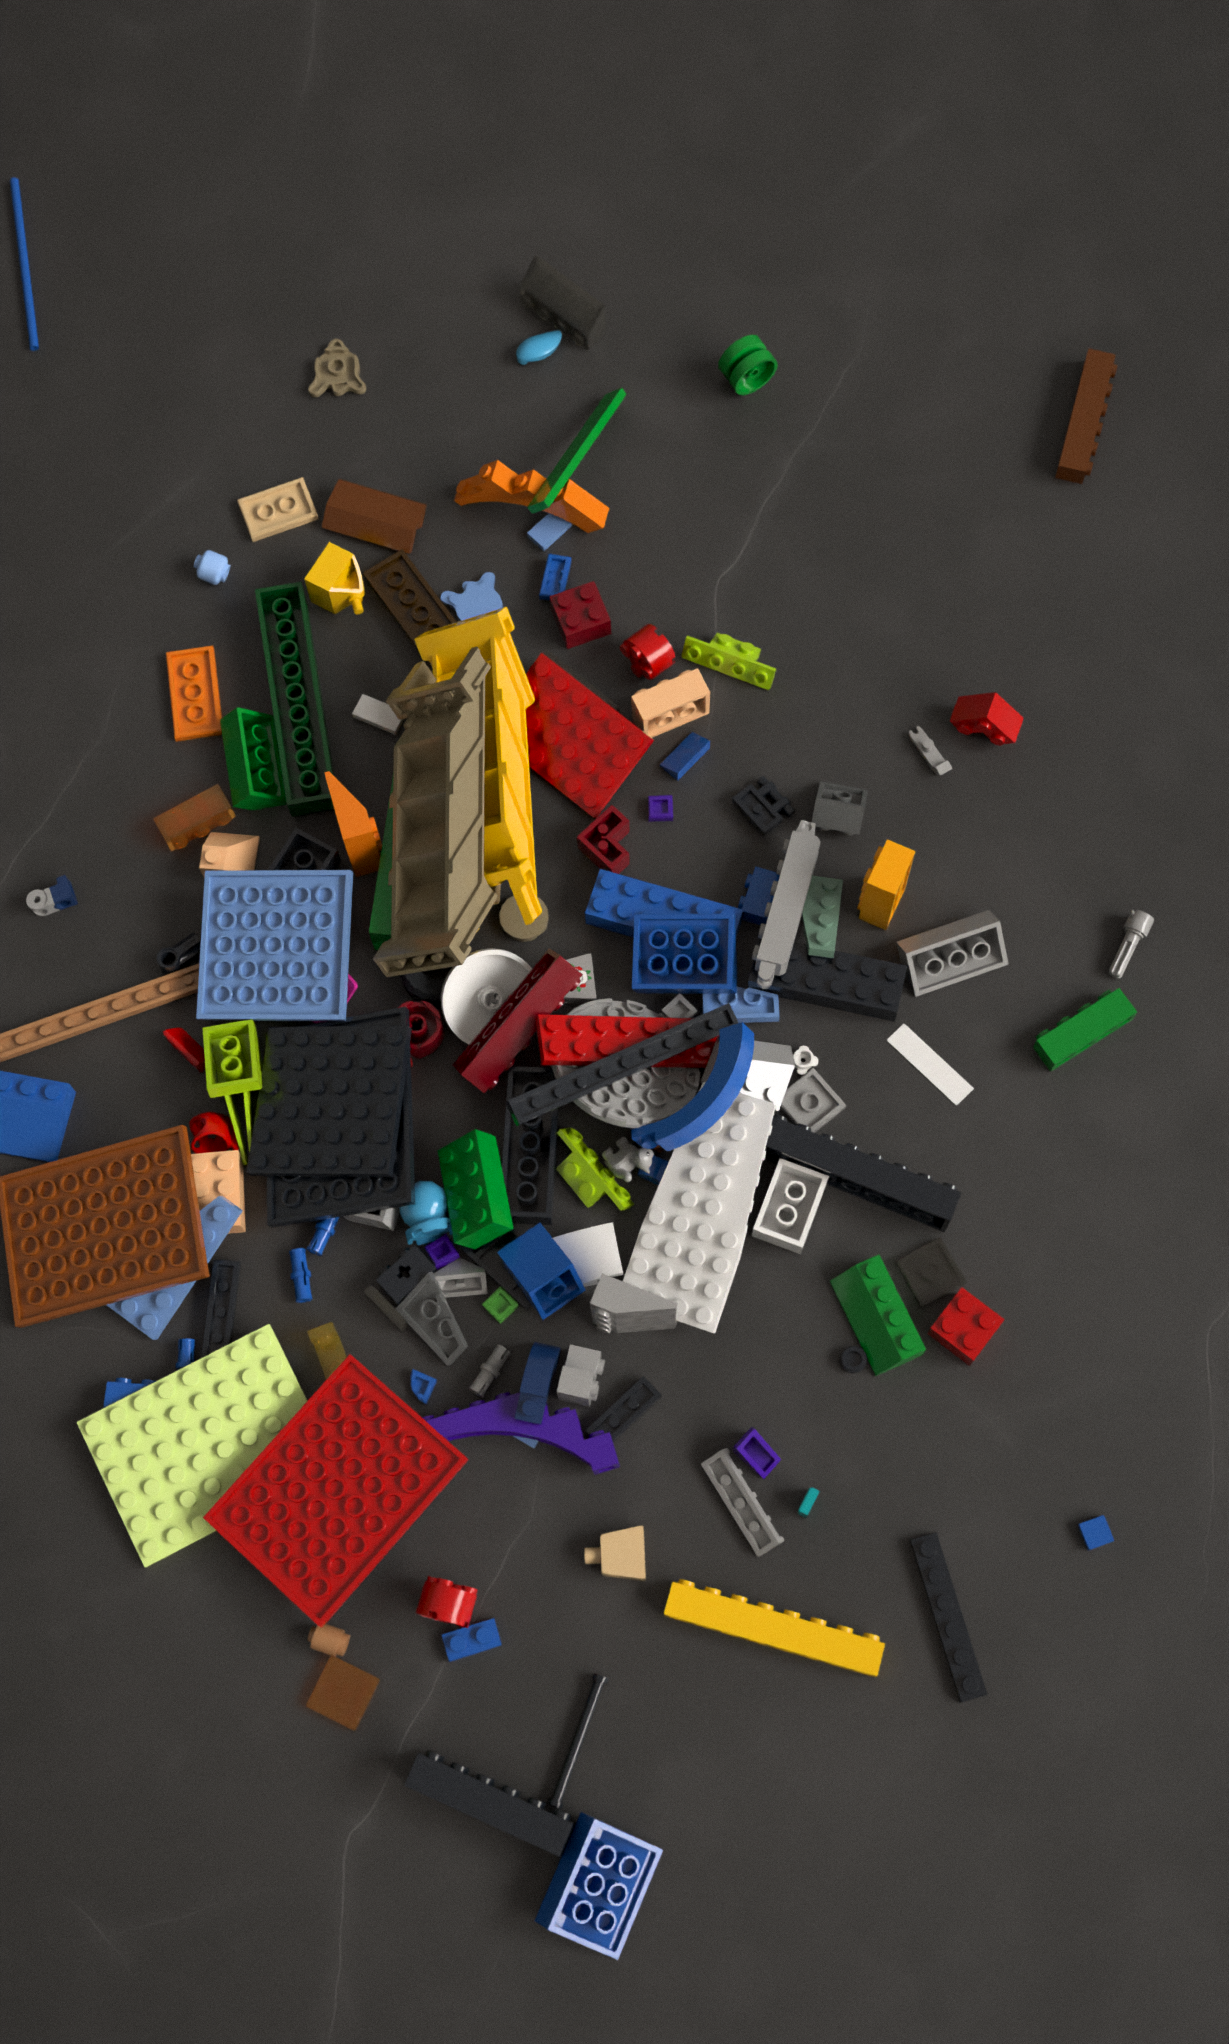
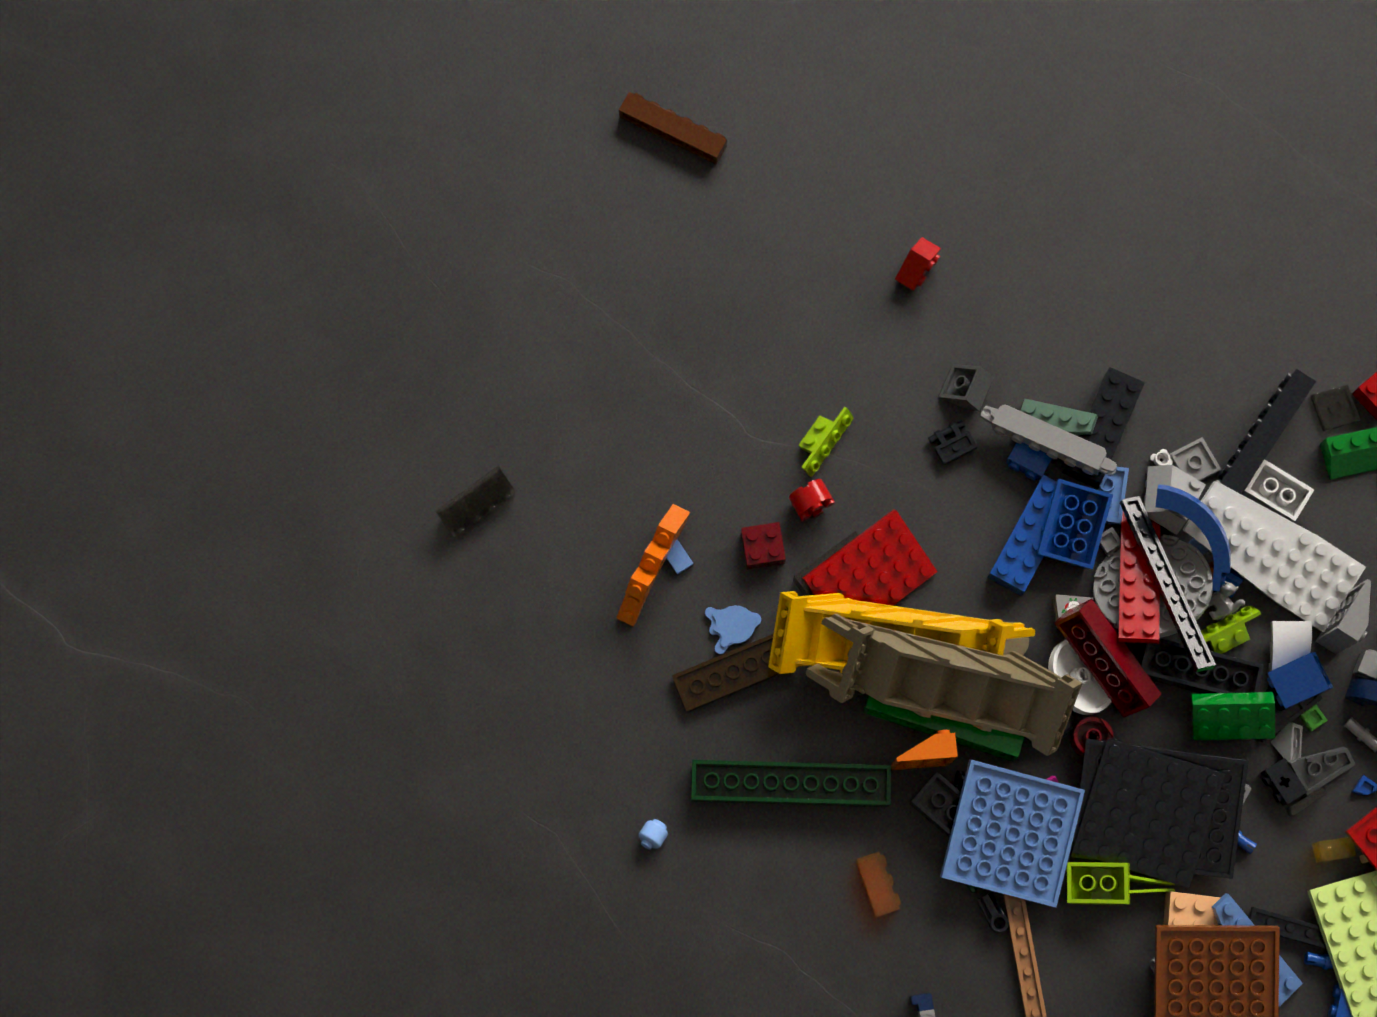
camera: 80 degrees left, 5 degrees up
(24, 264) = (325, 955): blue piece -> none
(186, 1047) = (1072, 920): red slope -> none
(194, 693) = (762, 868): orange tile -> none
(216, 1124) = (1150, 905): red piece -> none
(229, 852) = (914, 861): light nougat slope -> none
(252, 759) = (836, 828): green slope -> none
(277, 509) = (607, 772): tan tile -> none
(300, 1275) = (1268, 862): blue pin -> none
(336, 581) = (695, 730): yellow piece -> none
(337, 370) = (485, 699): dark tan tile -> none
(373, 515) = (634, 693): reddish brown slope -> none
(377, 714) = (813, 721): white tile -> none
(428, 1215) = (1252, 751): dark azure tile -> none
(442, 1252) = (1266, 753): dark purple tile -> none
(538, 347) = (505, 530): dark azure arm -> none
(555, 576) = (723, 559): blue plate -> none
(576, 451) = (624, 516): green tile -> none
(601, 841) = (964, 569): dark red brick -> none
(660, 808) = (937, 520): dark purple tile -> none
(671, 703) = (859, 492): light nougat brick -> none
(685, 755) = (898, 491): blue slope -> none
(747, 364) = (571, 368): green wheel -> none
(885, 884) = (1051, 364): light orange brick -> none
(929, 751) = (932, 311): light grey piece -> none
(930, 1064) = (1178, 371): white sticker -> none
(953, 952) = (1097, 333): light grey slope -> none
(1084, 1029) = (1174, 257): green brick -> none
(1136, 929) = (1103, 201): light grey piece -> none

